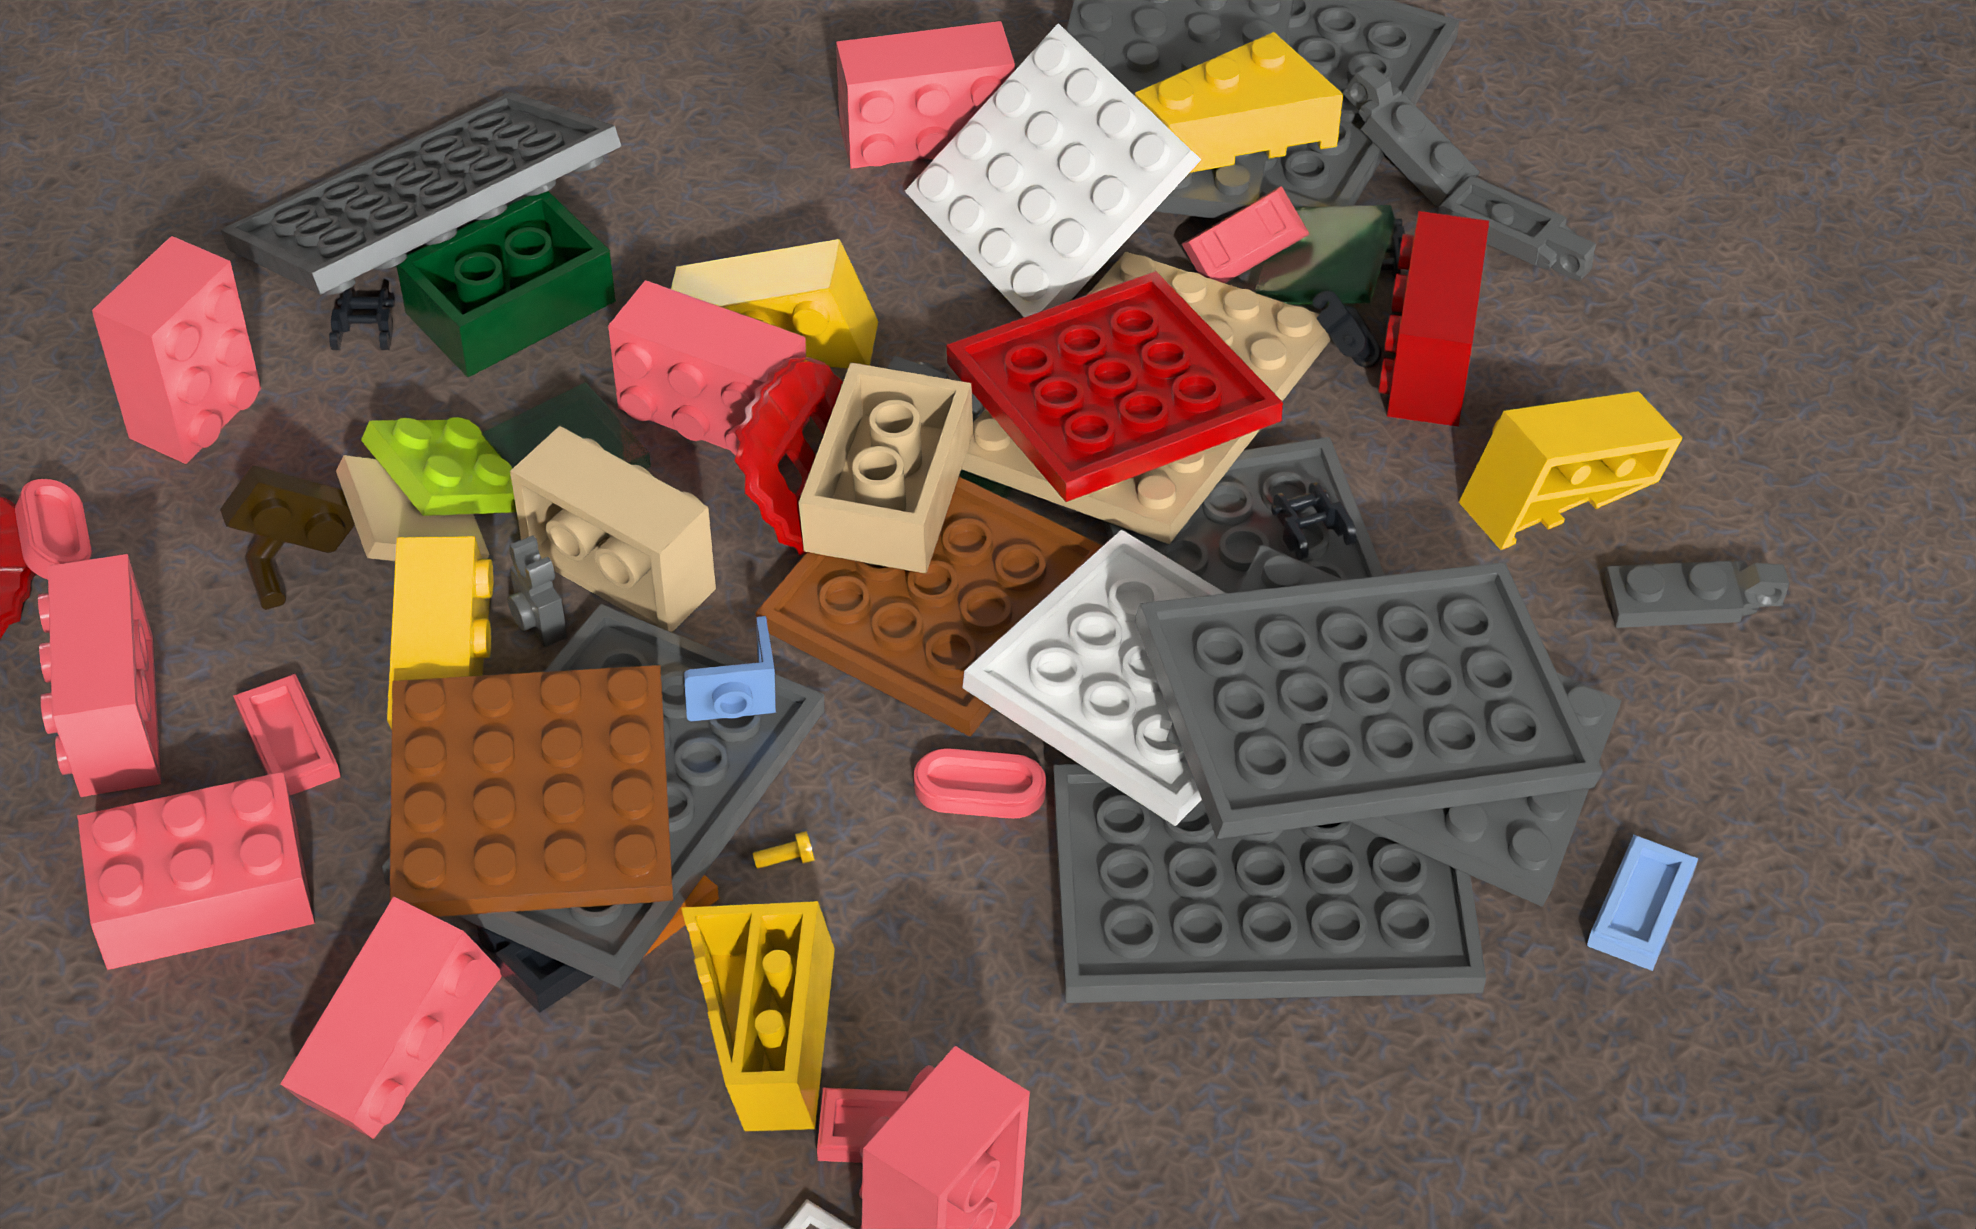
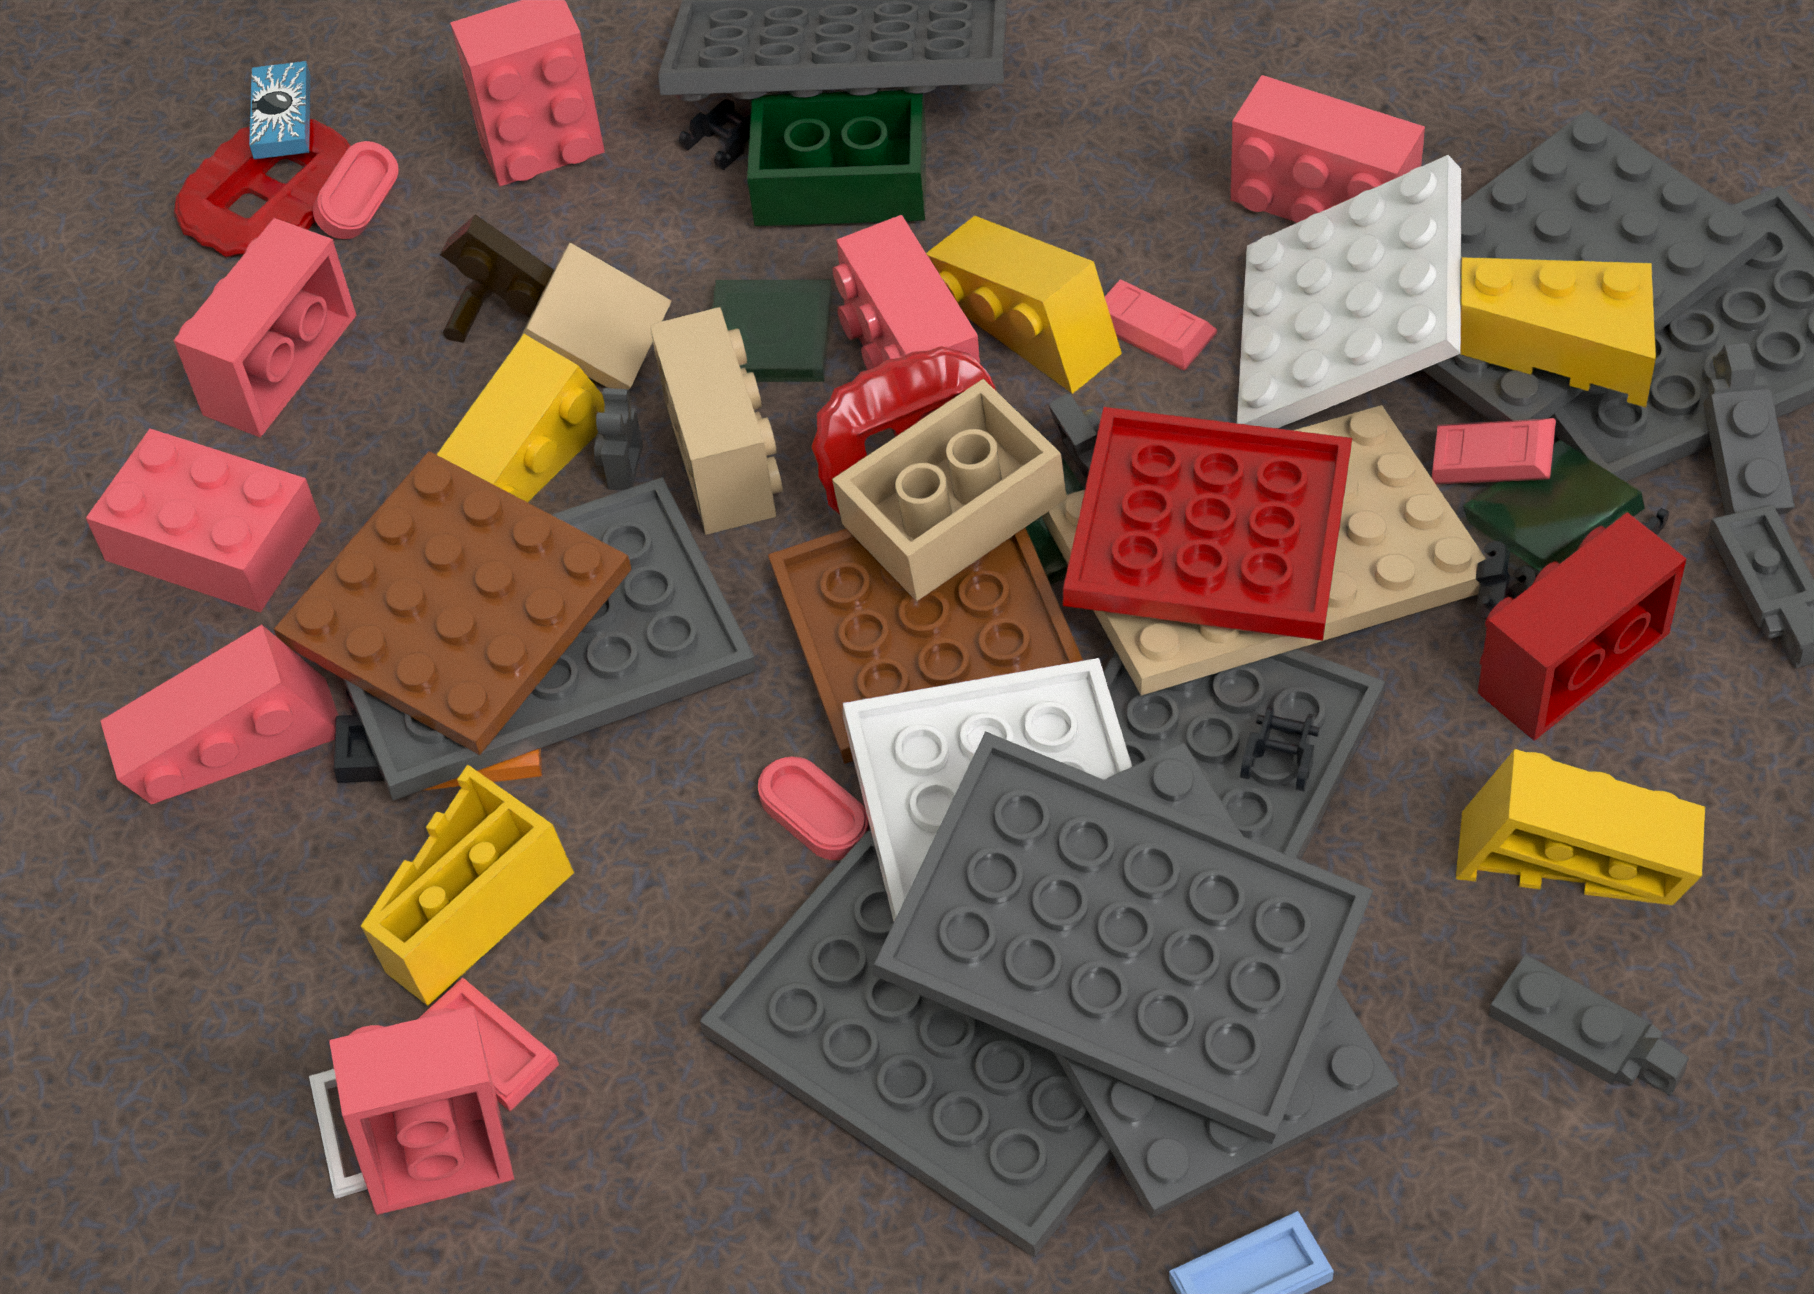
camera: 45 degrees right, 5 degrees up
(287, 734) = (367, 451): coral tile -> none
(442, 465) = (646, 284): lime plate -> none
(733, 689) = (680, 615): medium blue bracket -> none
(785, 852) = (632, 774): yellow piece -> none
(900, 284) = (1157, 325): none -> coral tile

